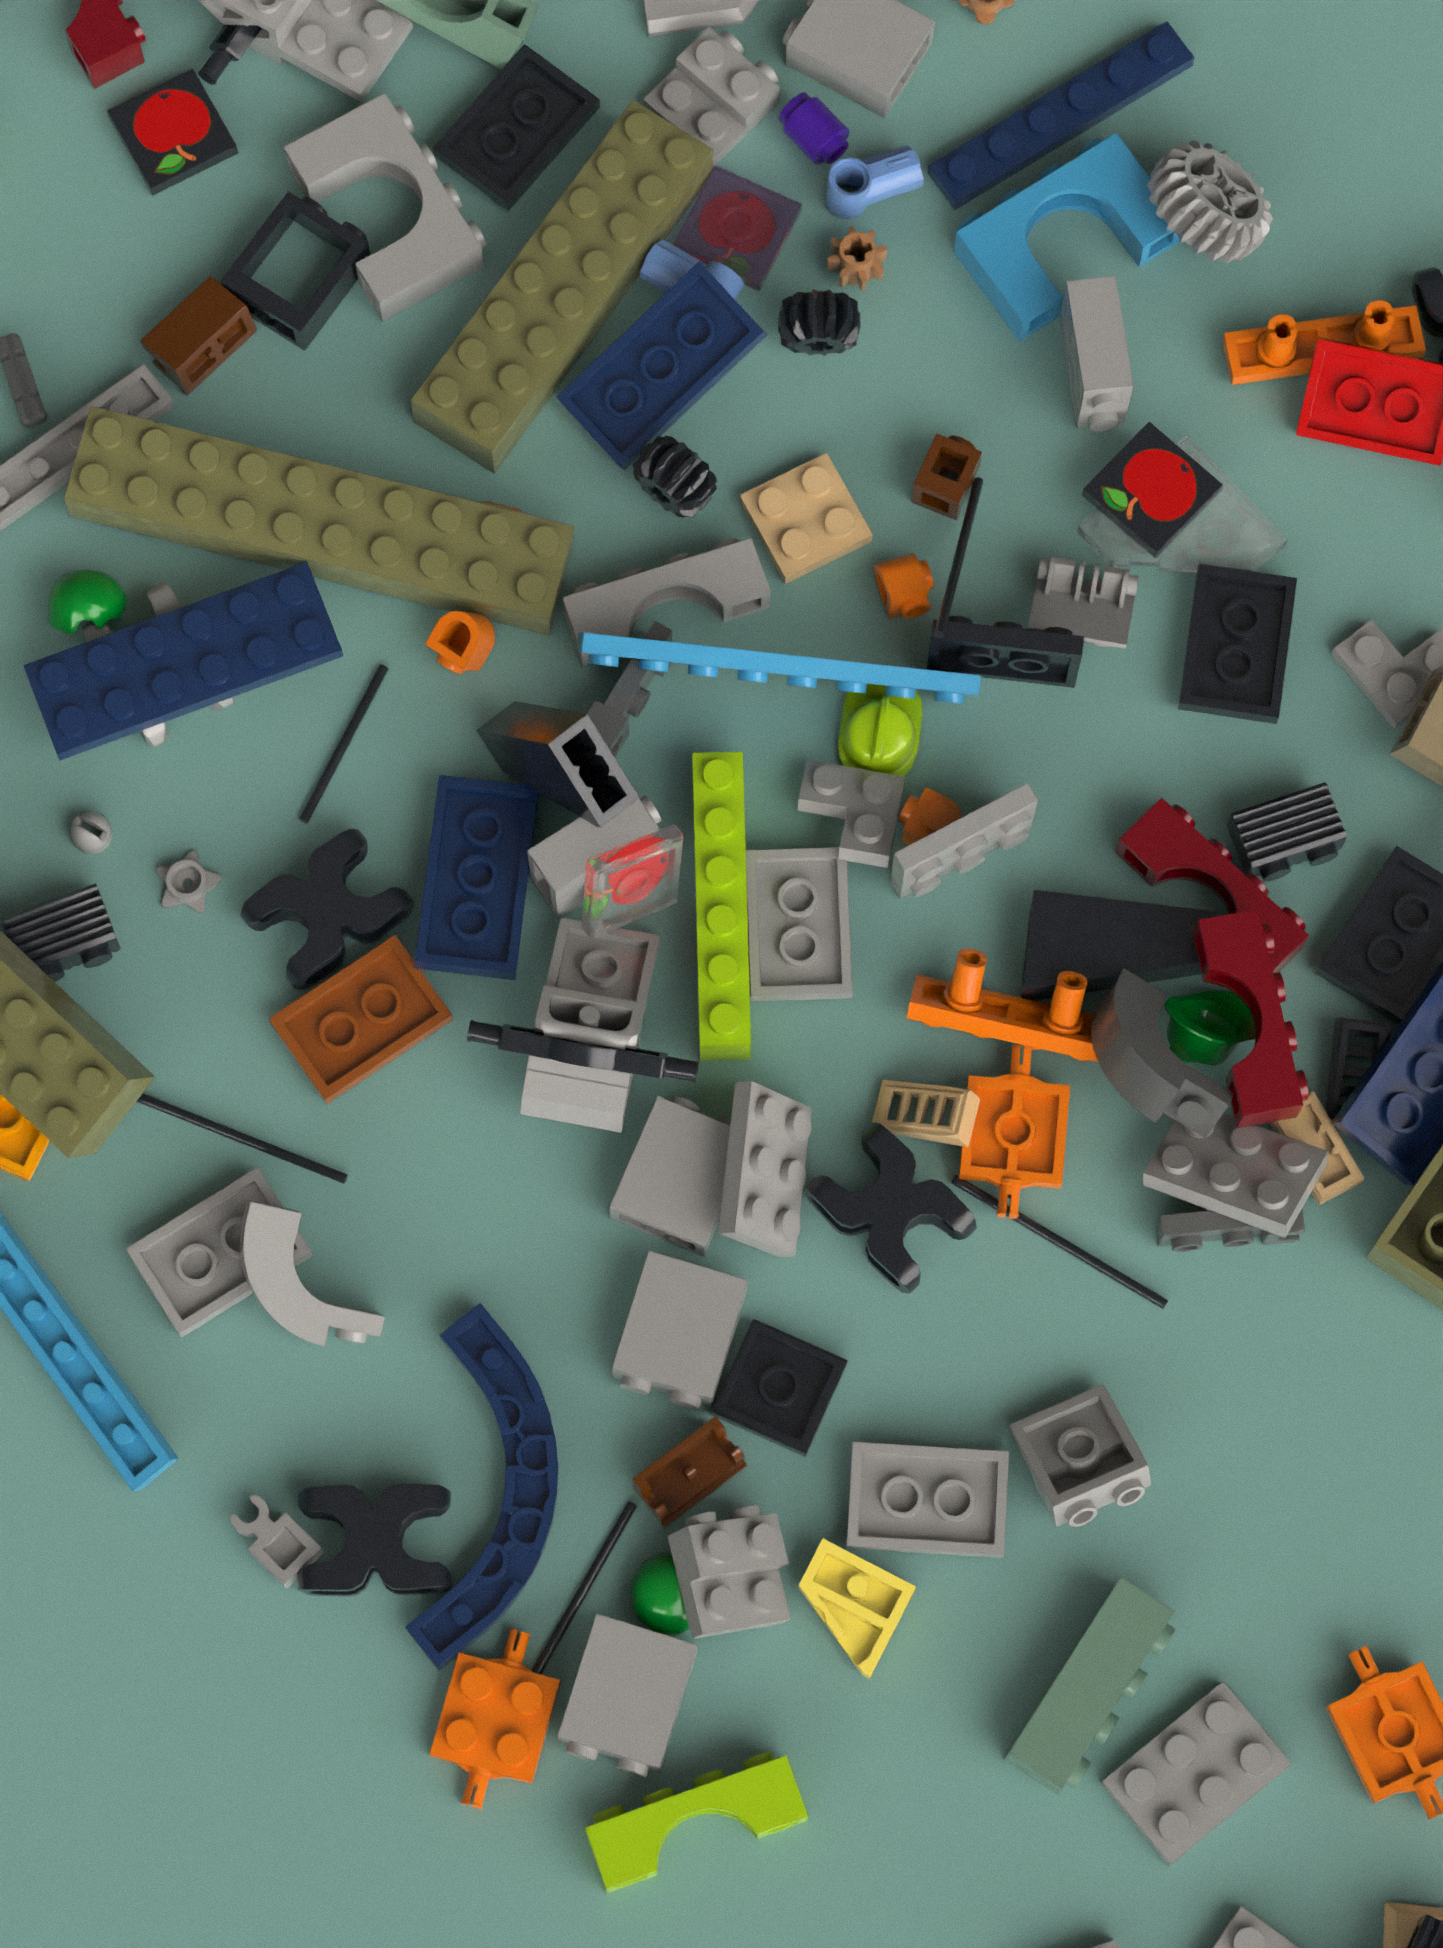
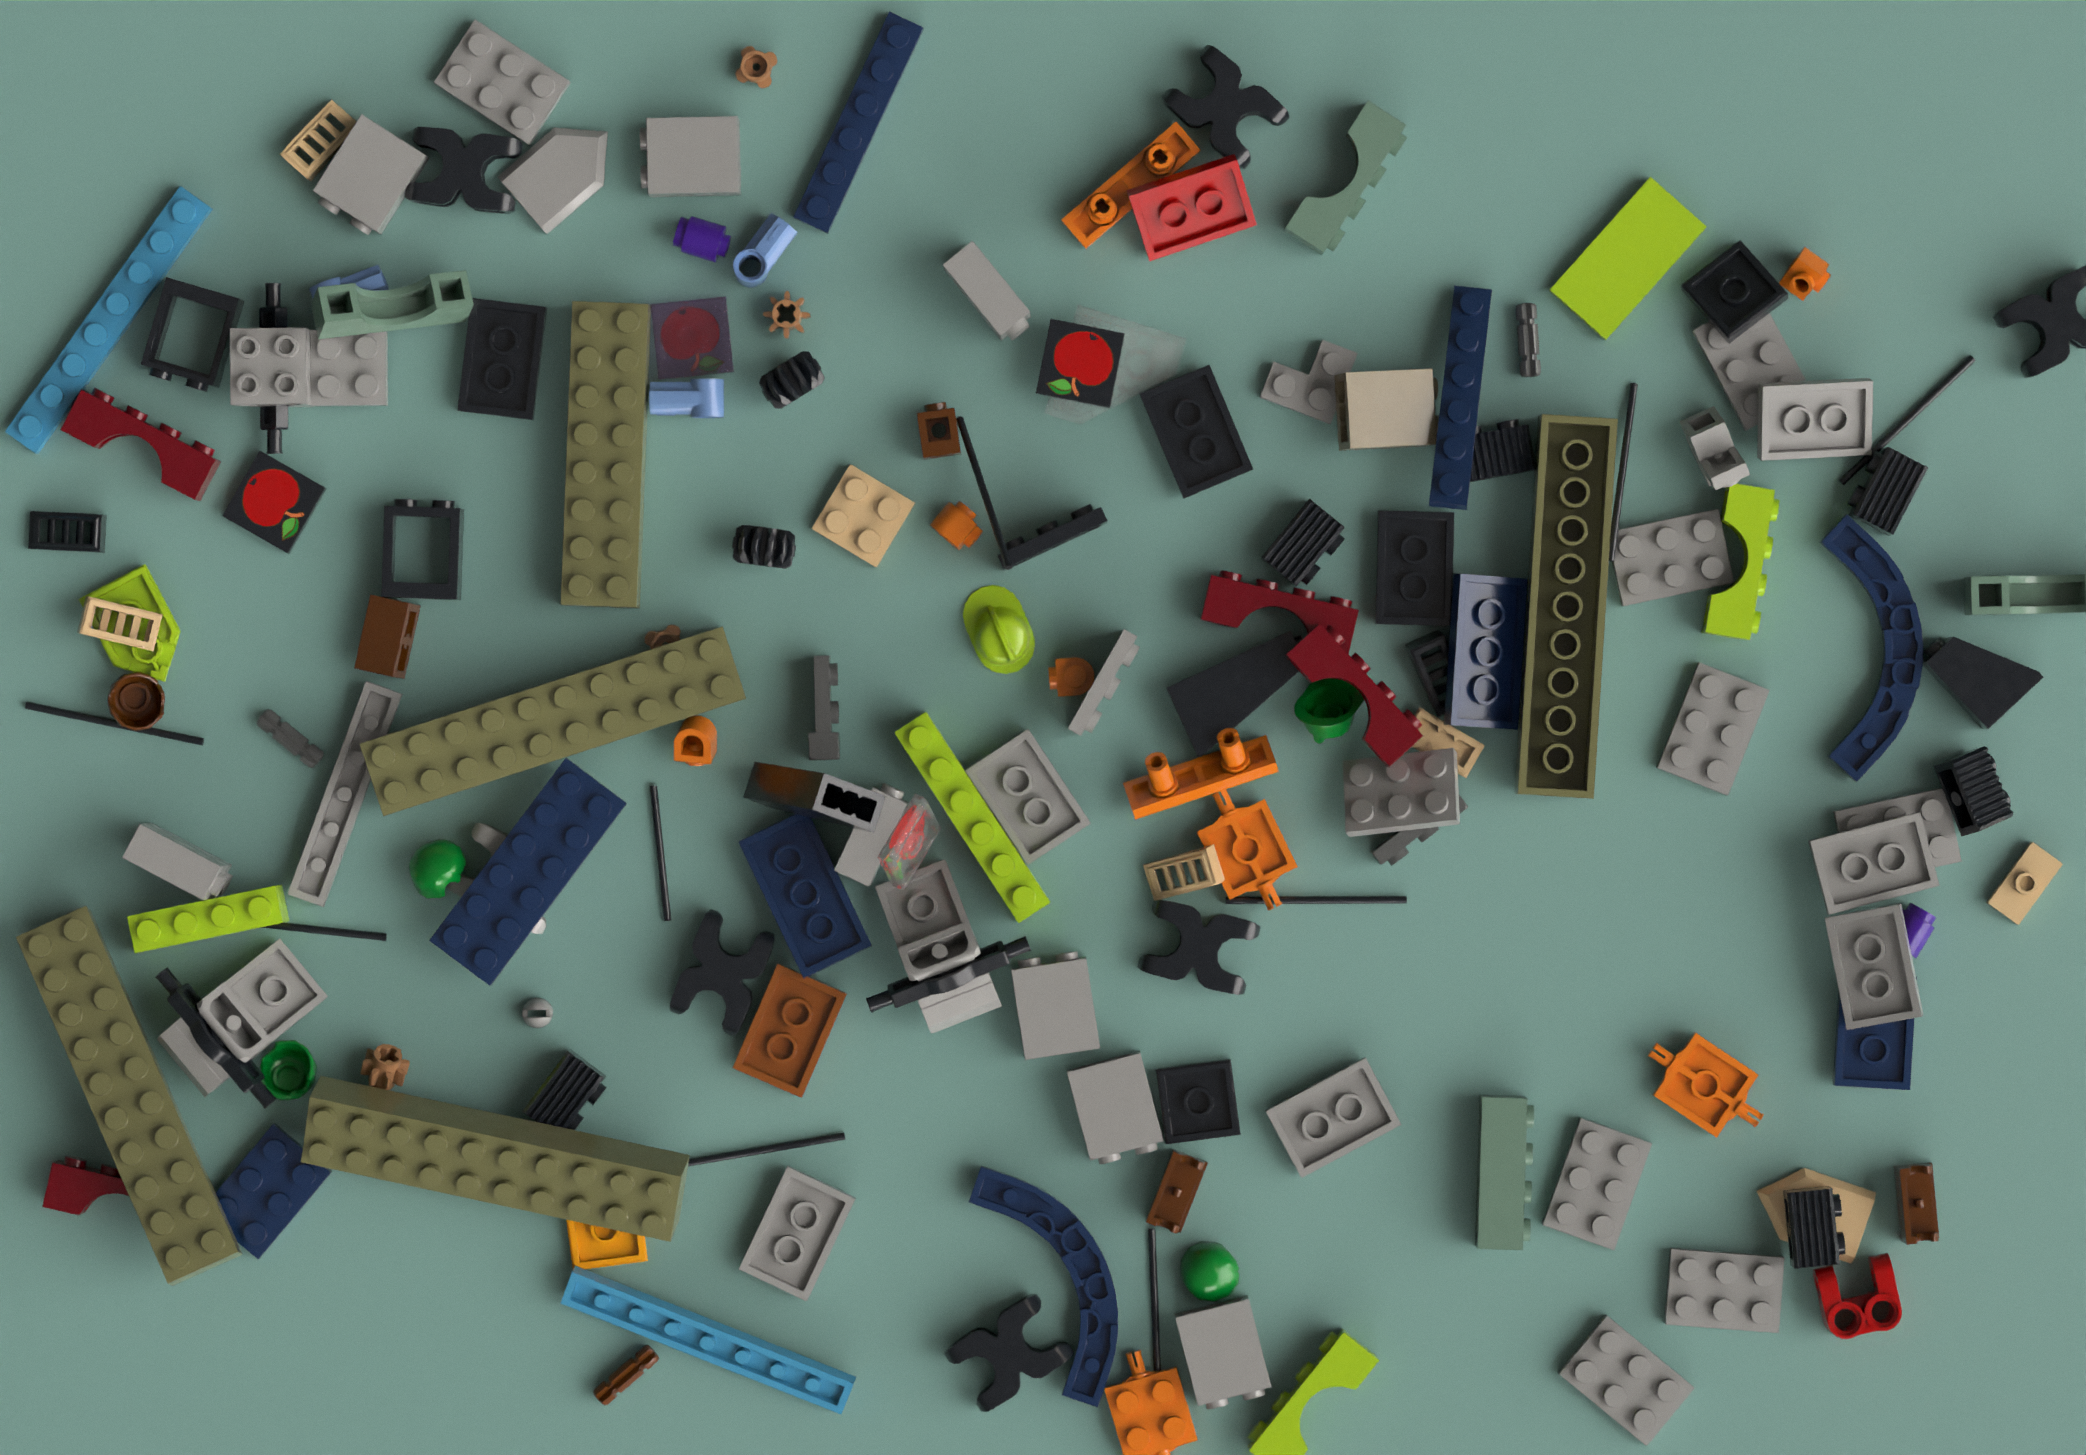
camera: 30 degrees left, 15 degrees up
(183, 870) = (609, 1007): light grey plate -> none
(269, 1267) = (866, 1243): light grey arch -> none
(280, 1546) = (954, 1391): light grey plate -> none
(379, 143) = (418, 428): light grey arch -> none
(661, 365) = (707, 475): dark blue plate -> none
(715, 92) = (618, 254): light grey plate -> none
(723, 580) = (777, 669): light grey arch -> none
(730, 1571) = (1241, 1240): light grey plate -> none
(756, 665) = (924, 632): dark azure plate -> none
(765, 1170) = (1107, 975): light grey plate -> none
(855, 1602) = (1327, 1207): light yellow wing -> none
(864, 799) = (1021, 688): light grey plate -> none
(1082, 605) = (1082, 472): light grey hinge -> none
(1082, 1457) = (1412, 1033): light grey plate -> none
(1099, 181) = (914, 158): dark azure arch -> none
(1142, 1064) = (1300, 765): dark grey arch -> none
(1210, 201) = (1008, 137): light grey gear -> none

